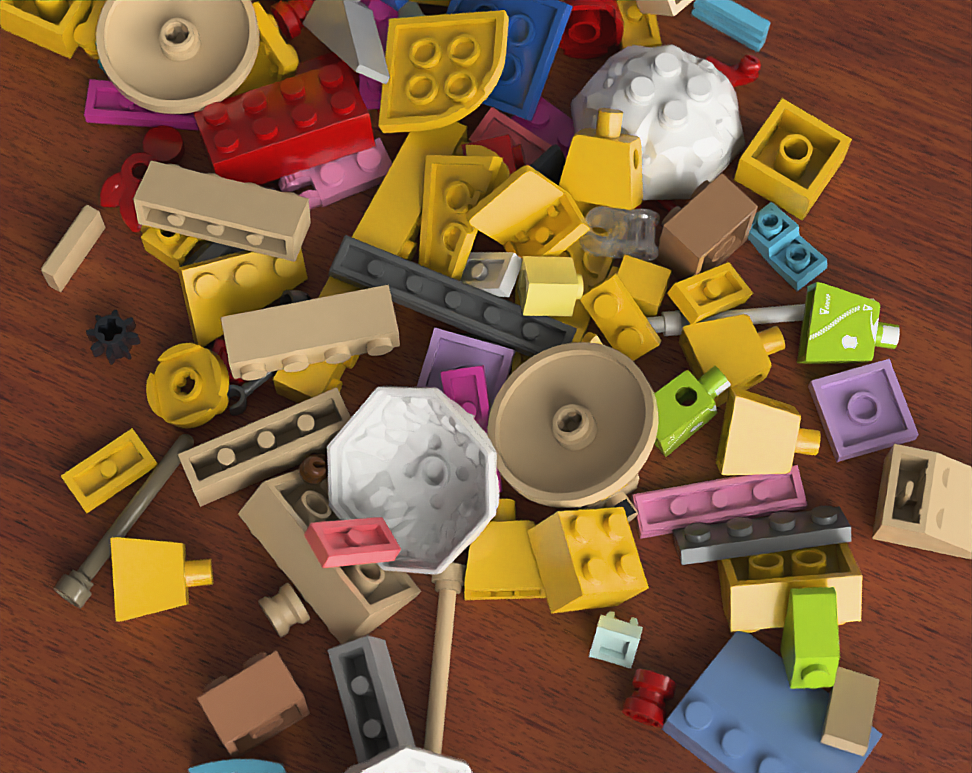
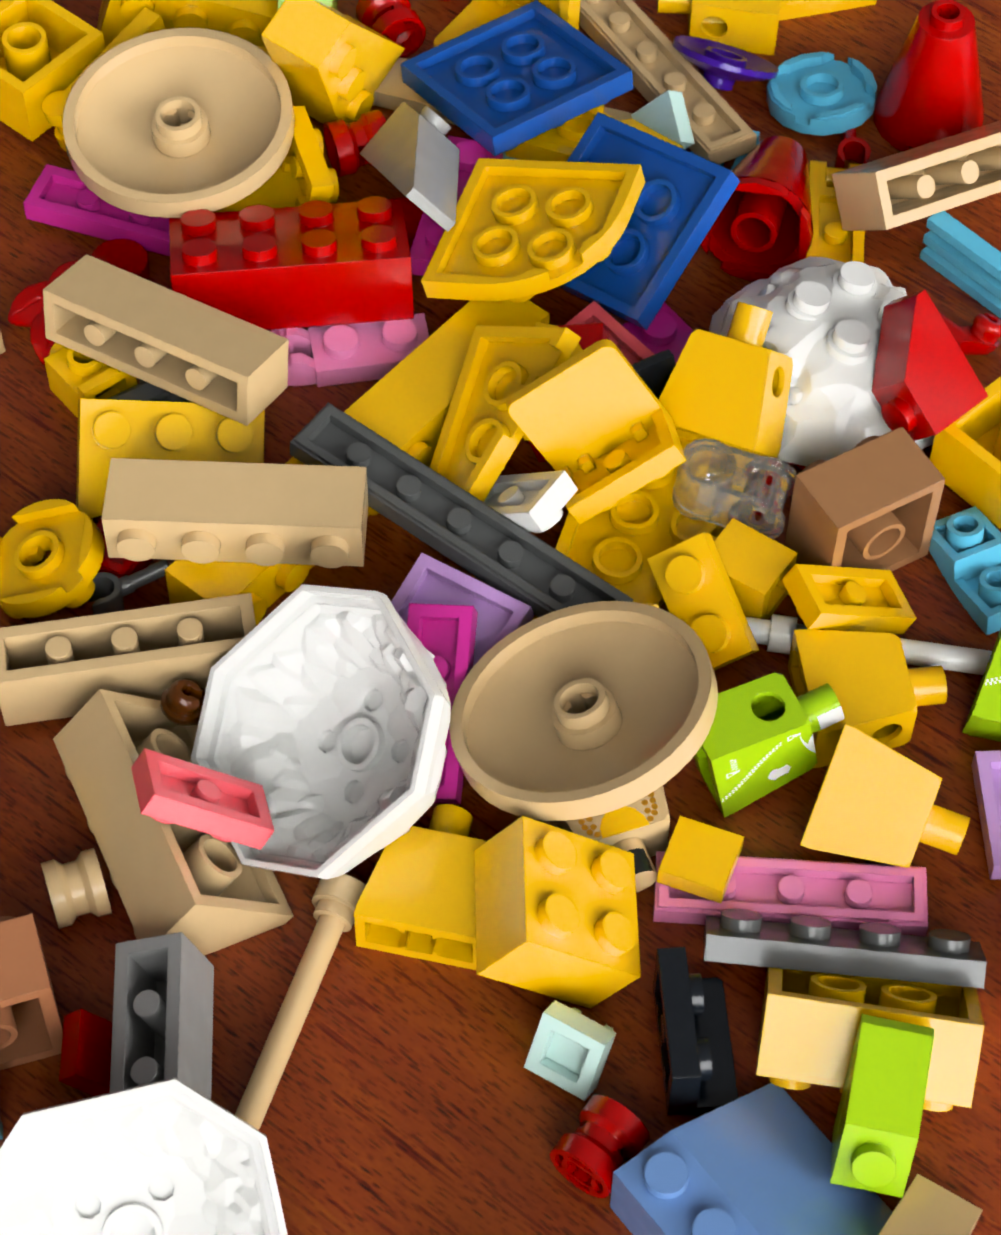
camera: 15 degrees right, 15 degrees down
(328, 718) = (86, 1052): none -> red tile
(548, 286) = (606, 529): light yellow brick -> none
(662, 496) = (700, 859): none -> yellow tile
(686, 615) = (692, 1036): none -> black bracket
(725, 129) = (921, 369): none -> slope

